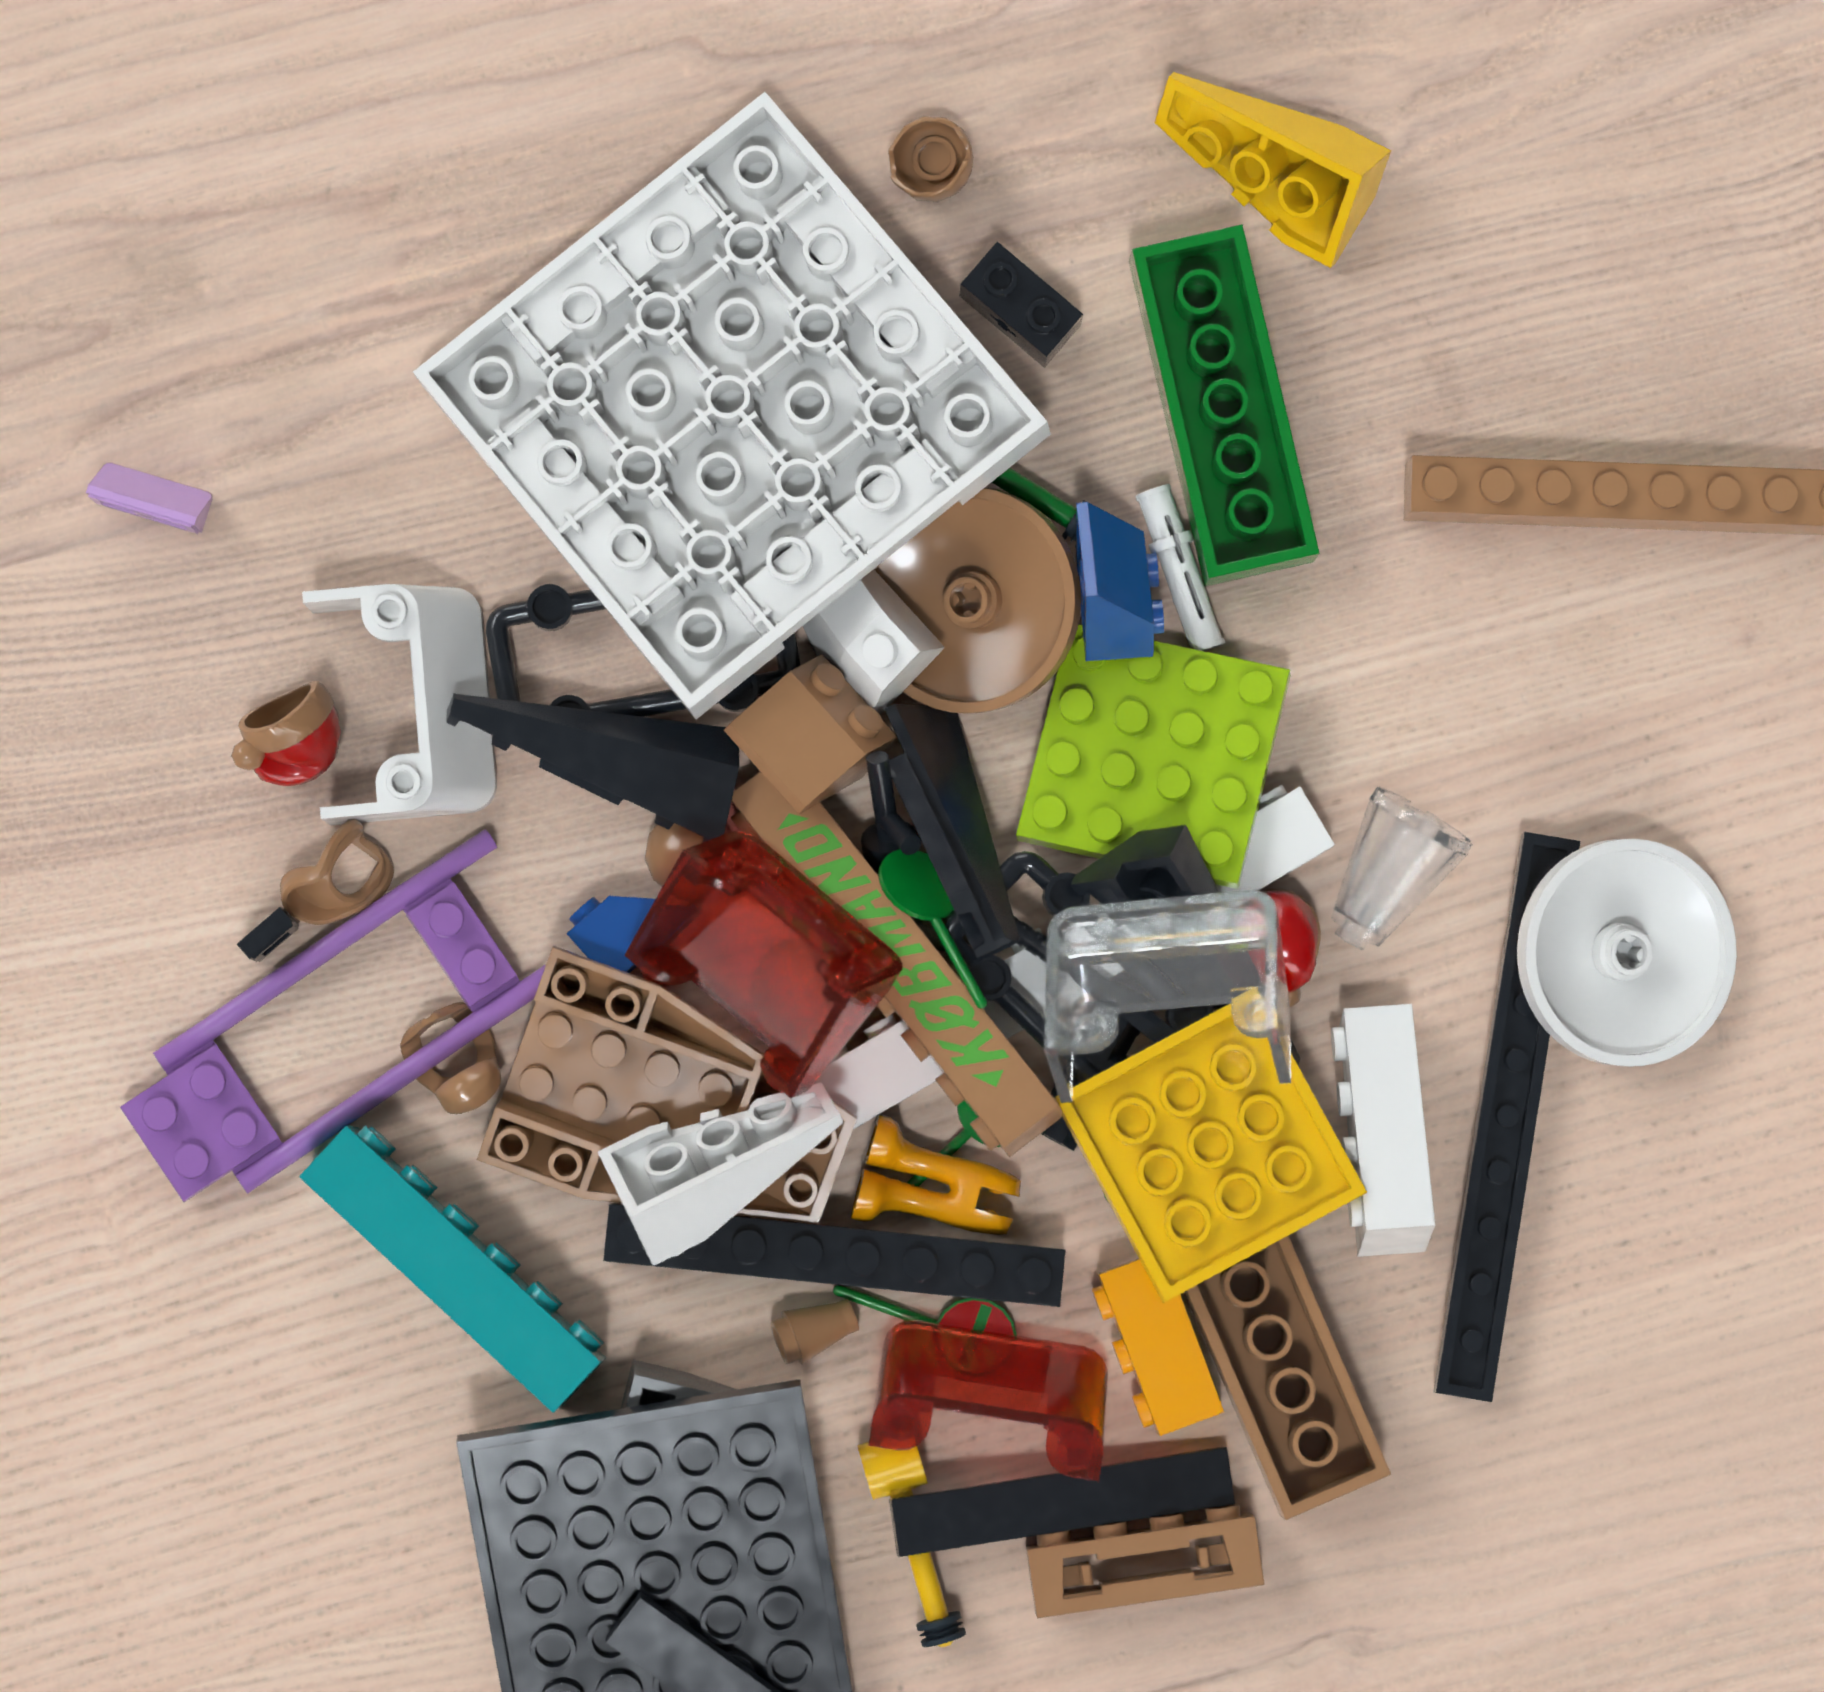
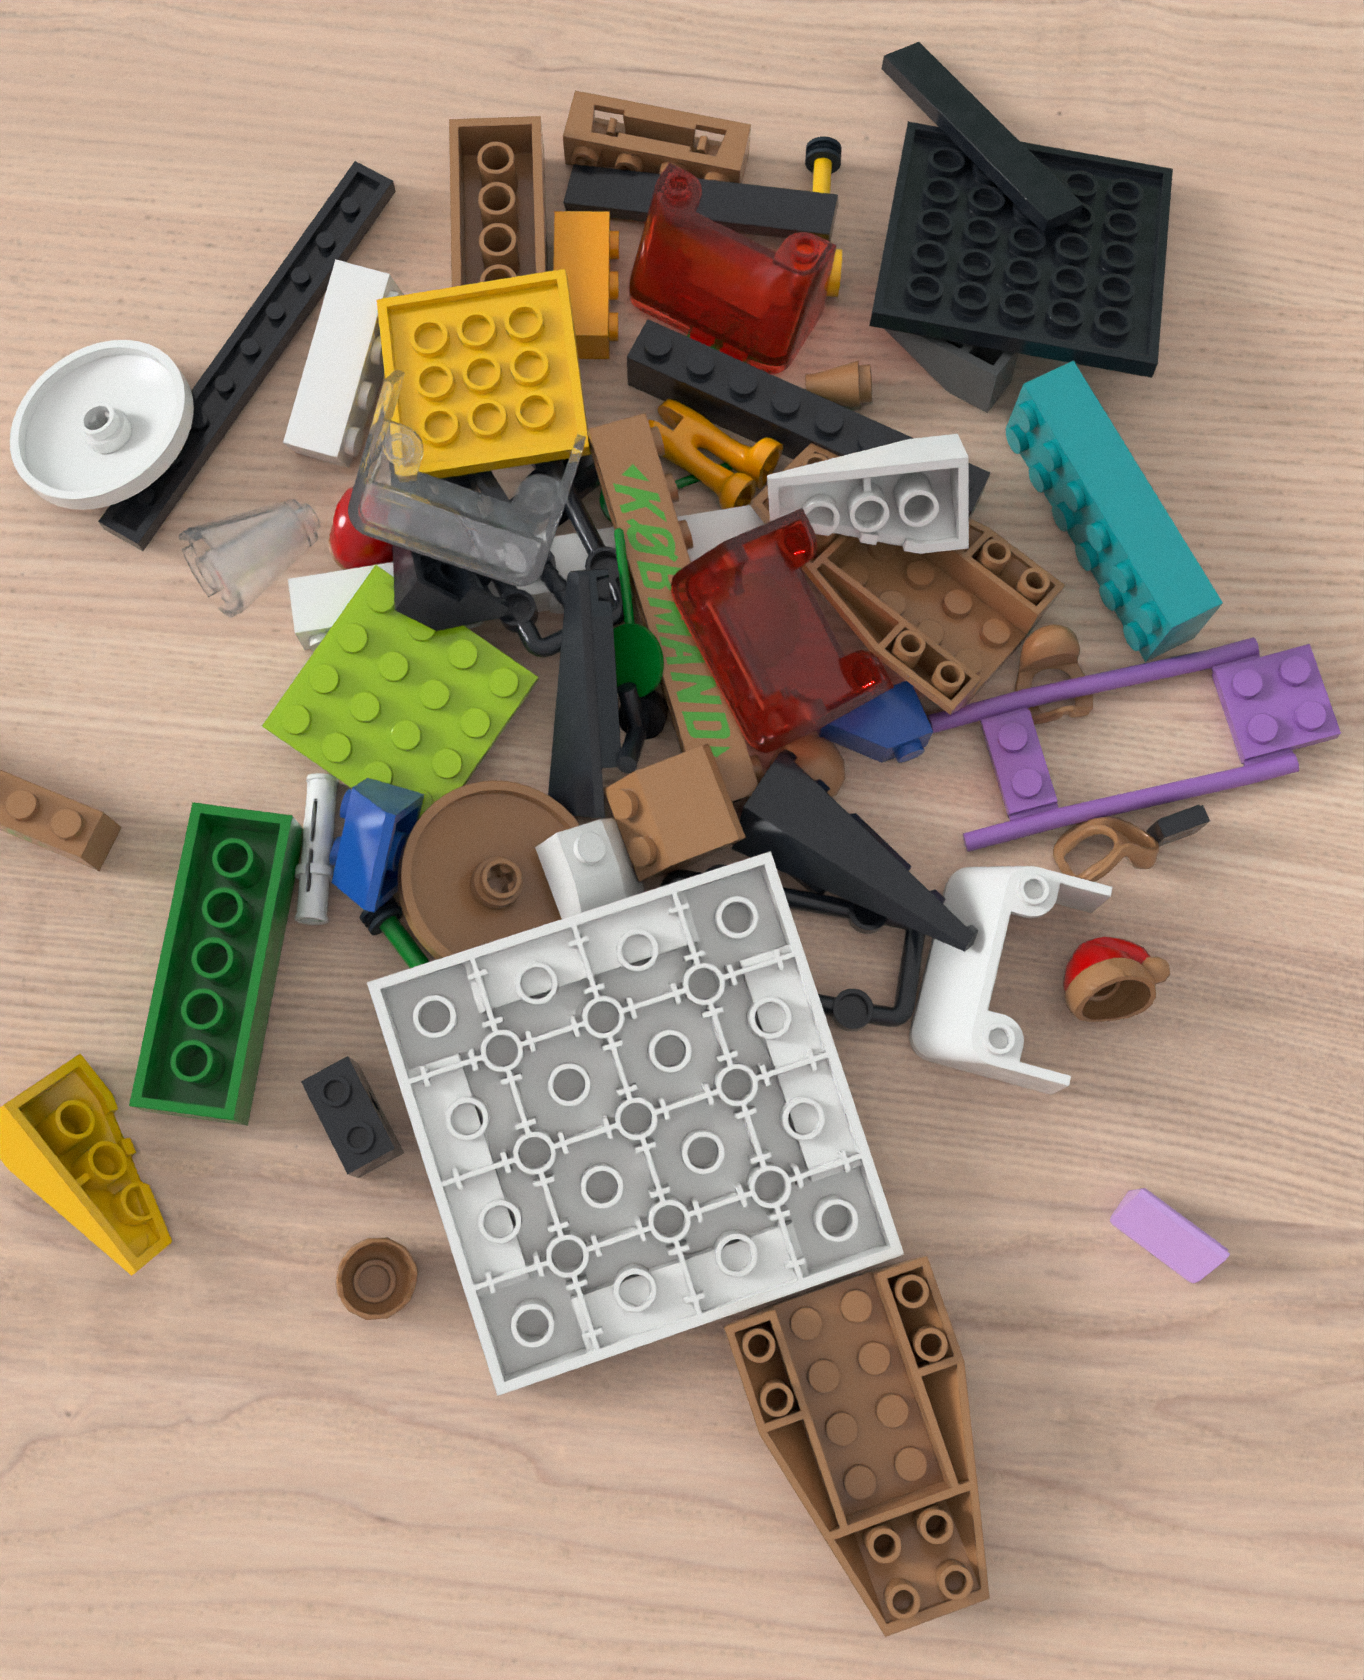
camera: 155 degrees left, 10 degrees down
(388, 194) = (875, 1435): none -> medium nougat wedge

